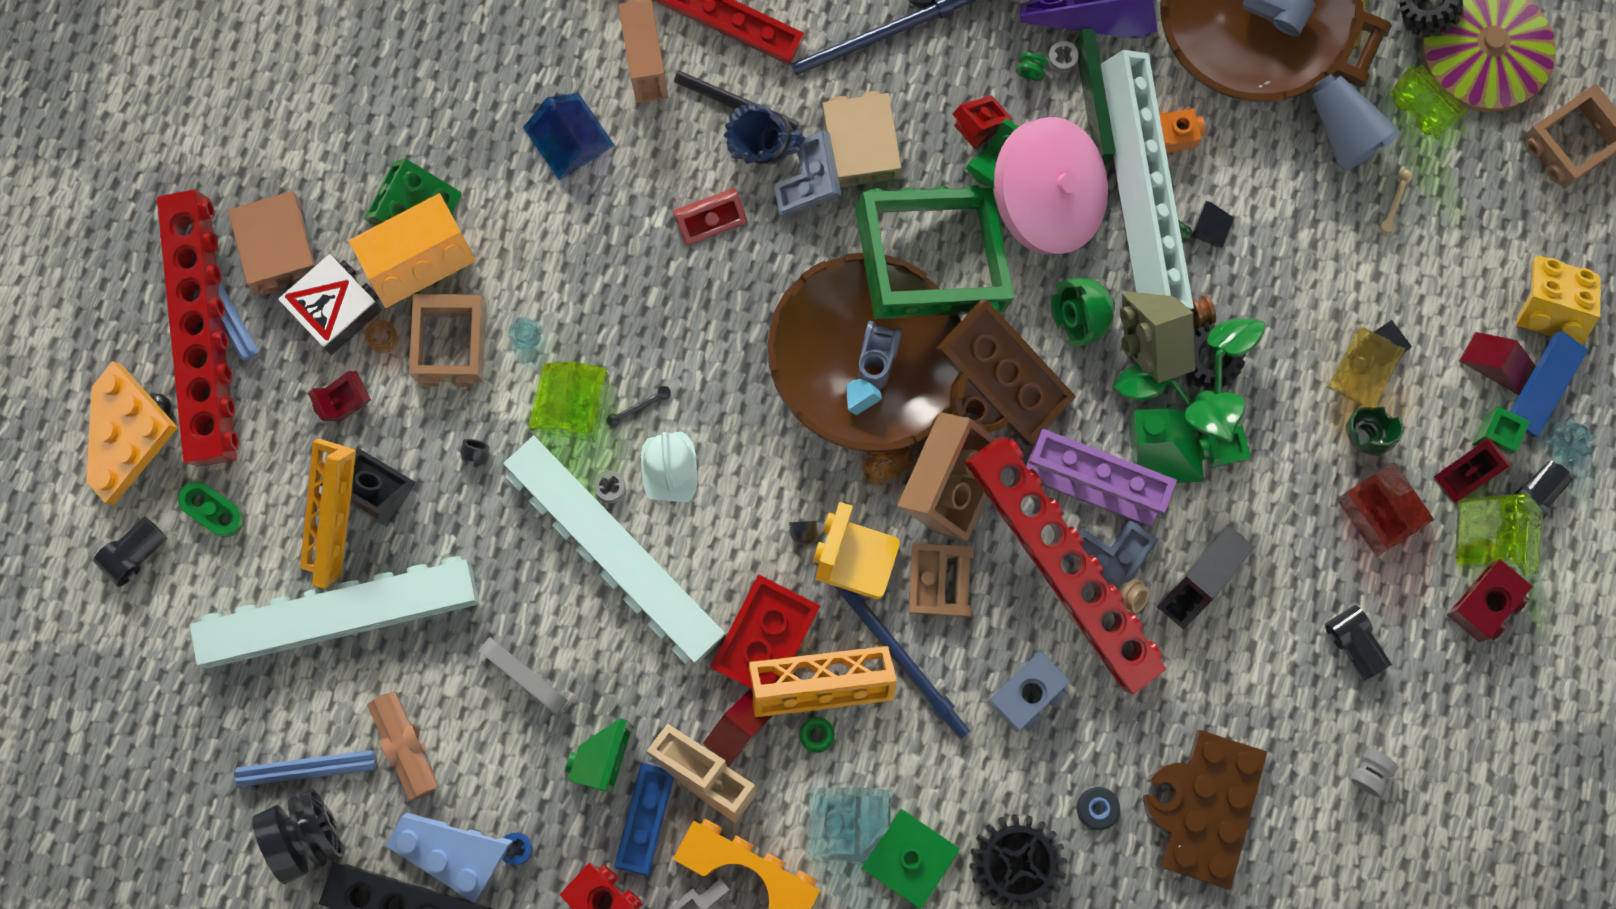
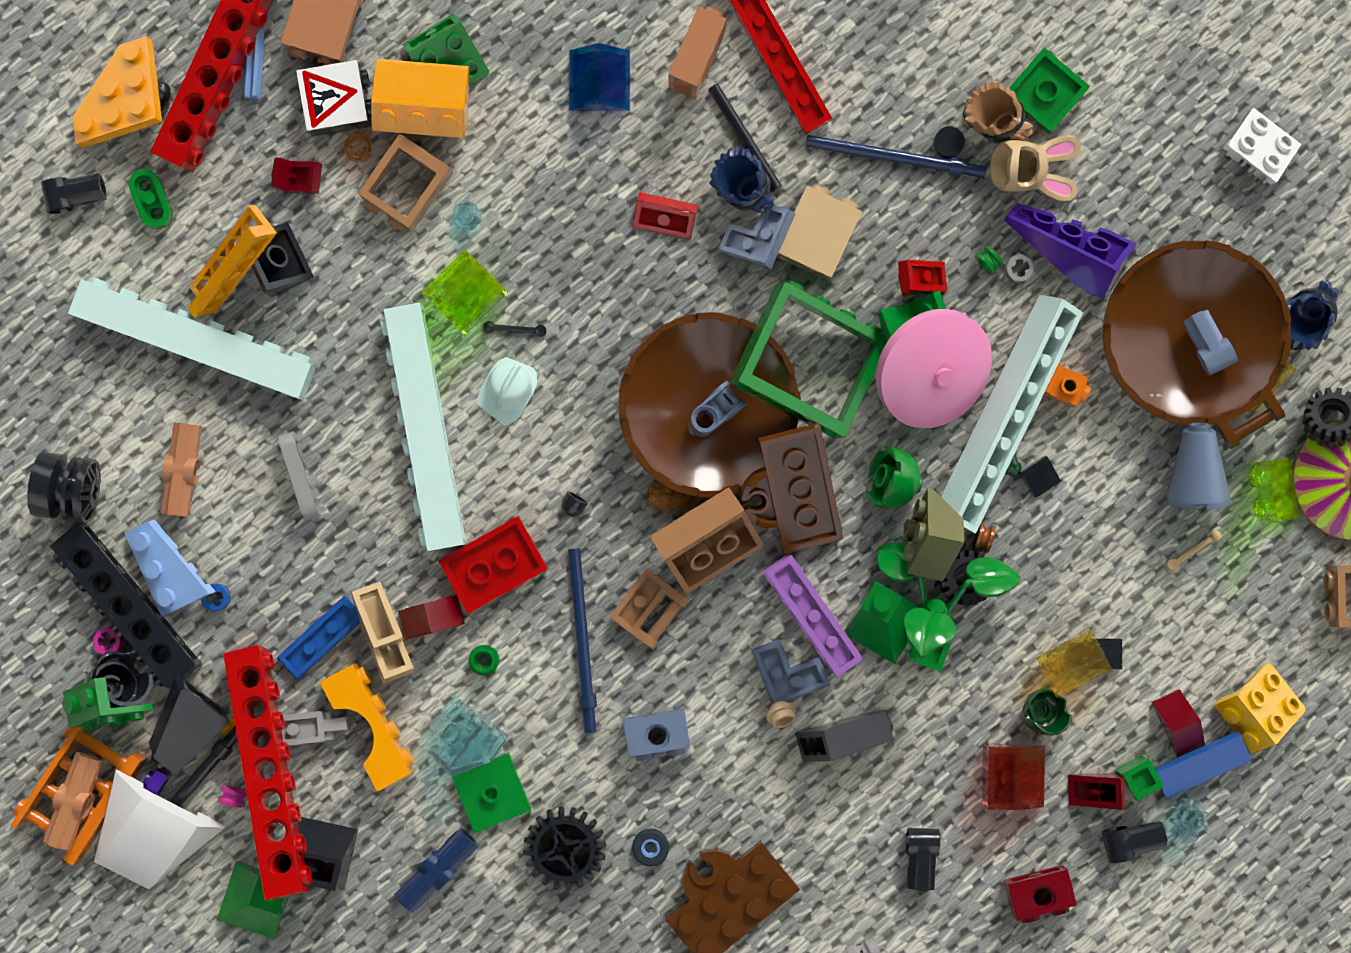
camera: 30 degrees right, 10 degrees up
(305, 768) = (102, 439): medium blue axle -> none
(474, 451) = (367, 282): black hinge -> none
(600, 757) = (313, 575): green slope -> none
(609, 476) = (449, 384): light grey bush -> none
(823, 692) = (506, 634): light orange fence -> none
(855, 555) = (598, 550): yellow bracket -> none
(861, 395) = (681, 434): medium azure tile -> none
(1094, 94) = (1021, 316): dark green tile -> none
(1146, 658) = (744, 769): red brick -> none
(1500, 529) = (1084, 848): clear neon green bracket -> none

